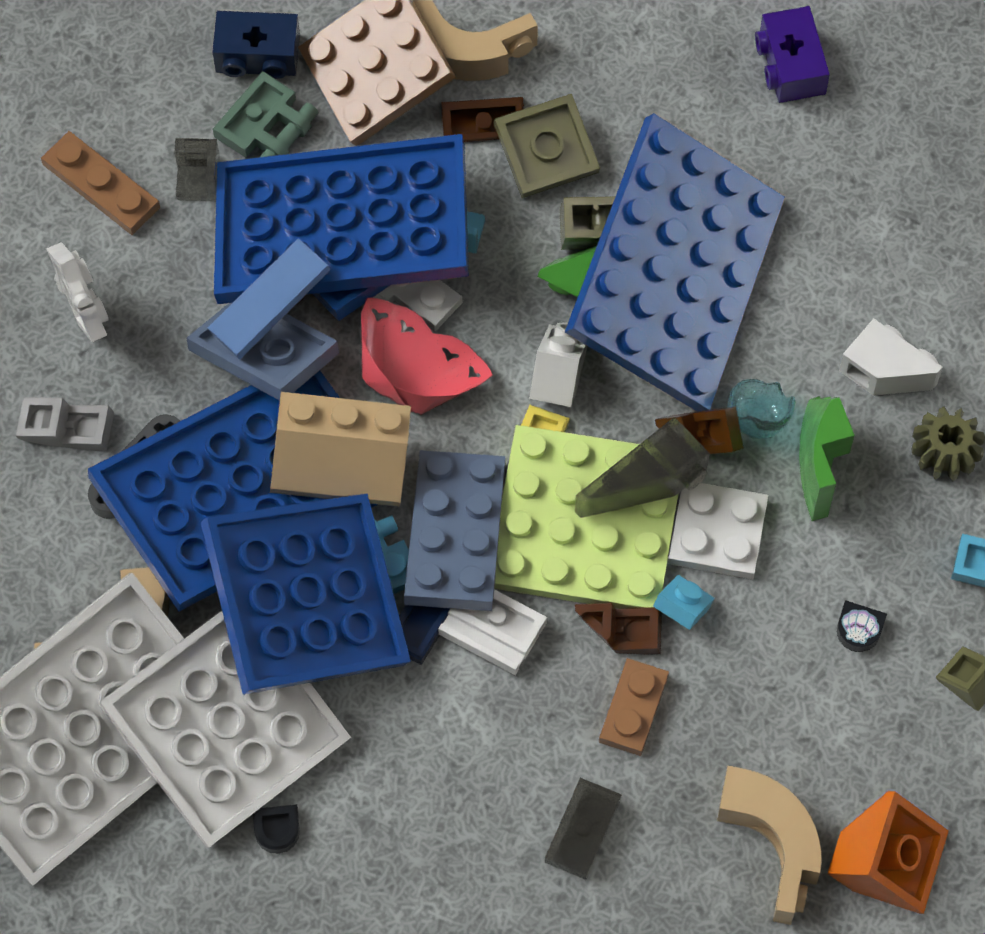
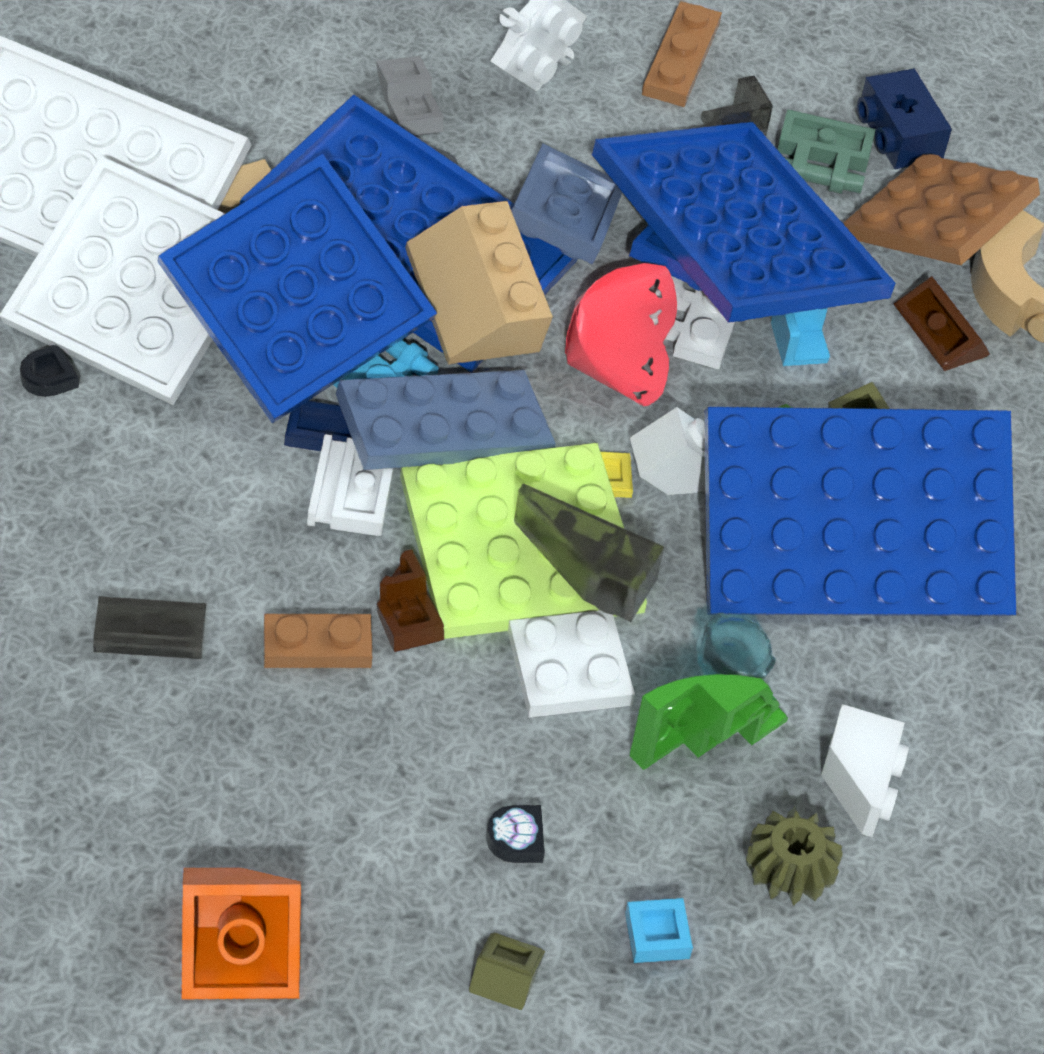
camera: 60 degrees right, 15 degrees down
(269, 298) = (610, 172): medium blue tile -> none
(546, 145) = (939, 372): olive plate -> none
(683, 602) = (462, 647): medium azure plate -> none
(714, 428) = (678, 610): reddish brown slope -> none
(779, 815) = (219, 824): tan arch -> none

